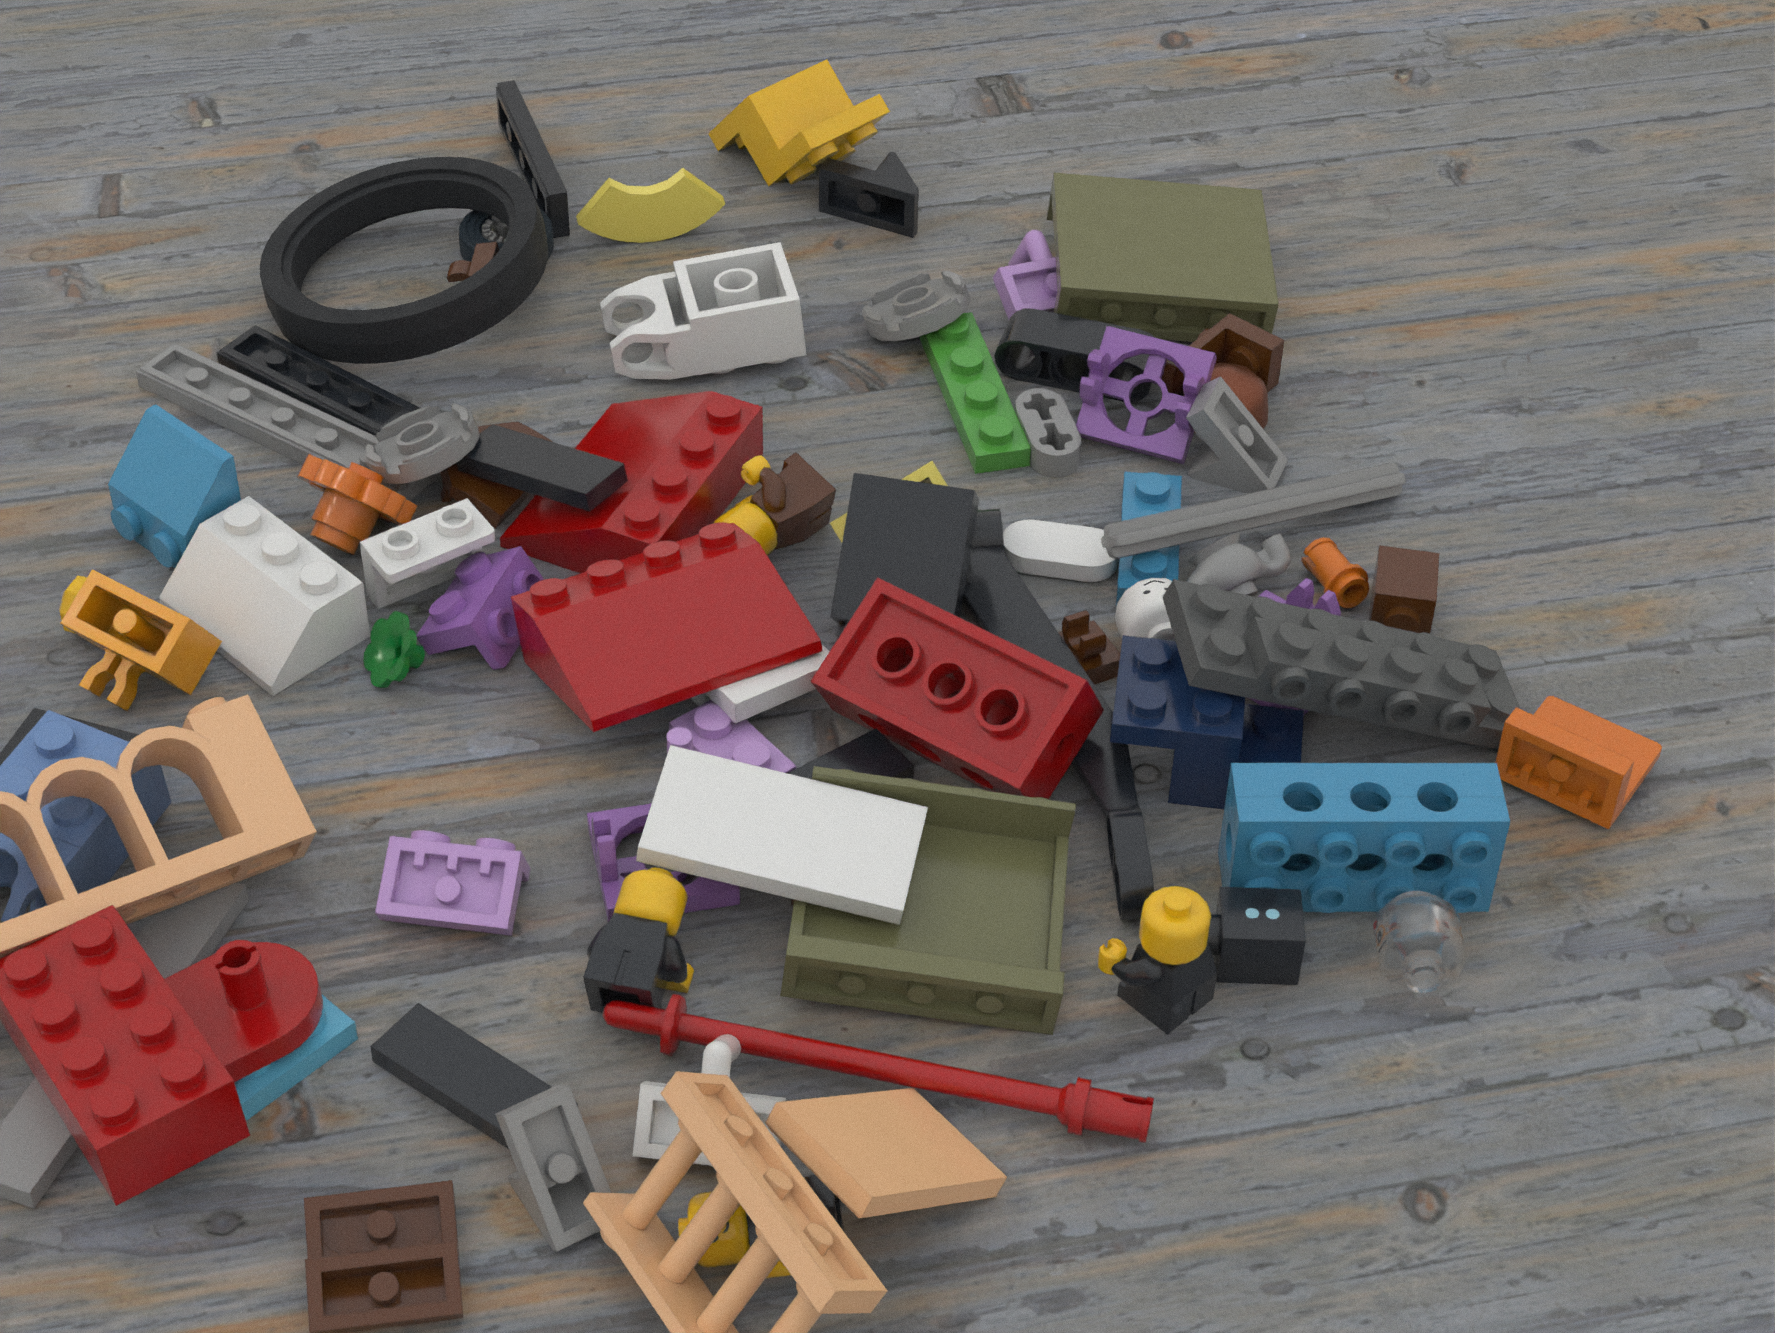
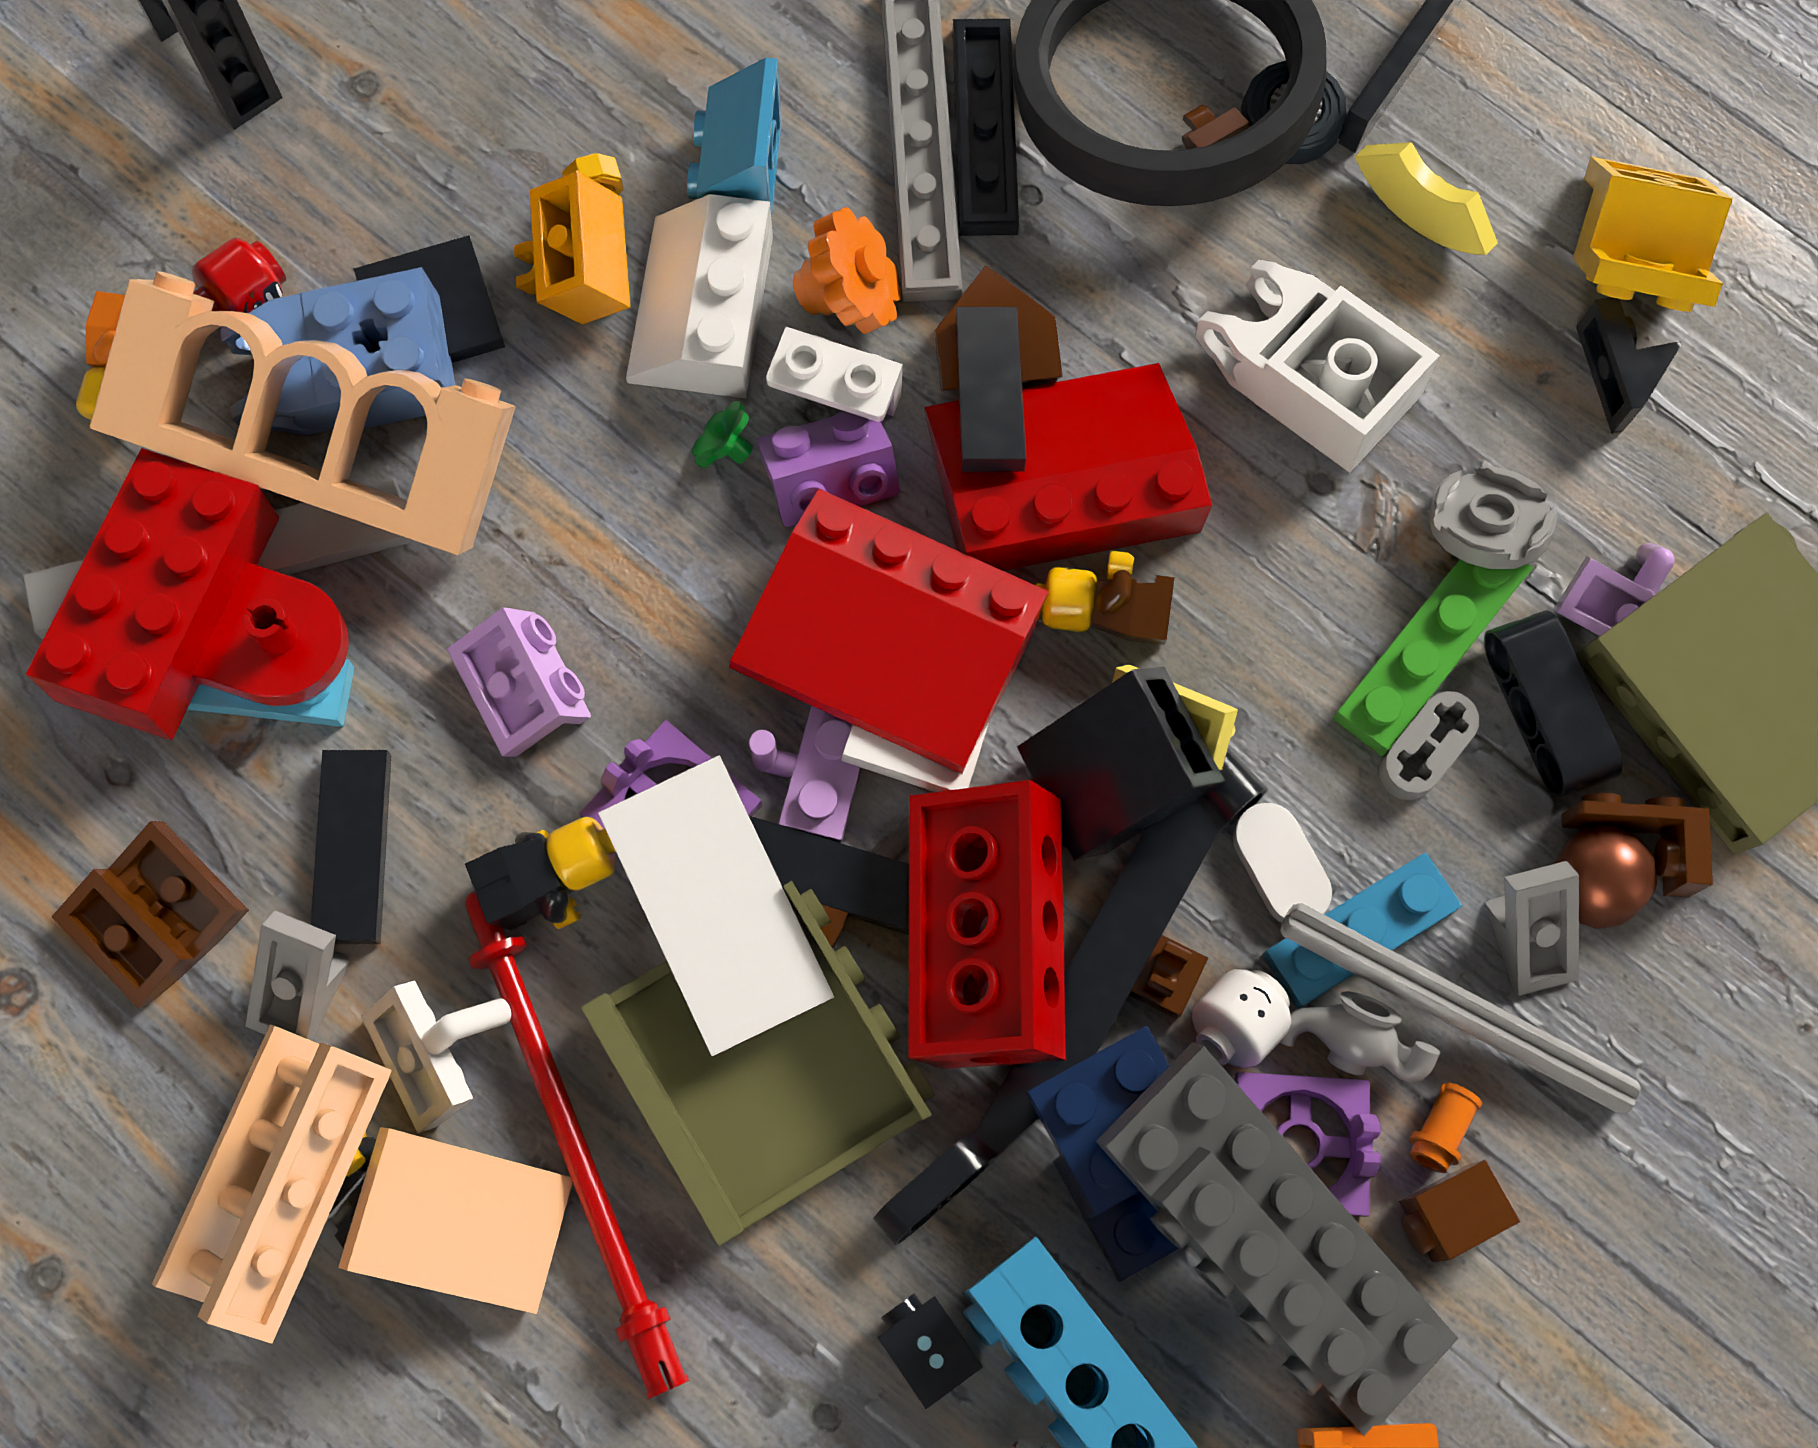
camera: 50 degrees right, 30 degrees up
(422, 443) = (950, 273): light grey tile -> none
(1115, 348) = (1563, 748): medium lavender piece -> none
(1172, 965) = (827, 1300): piece -> none

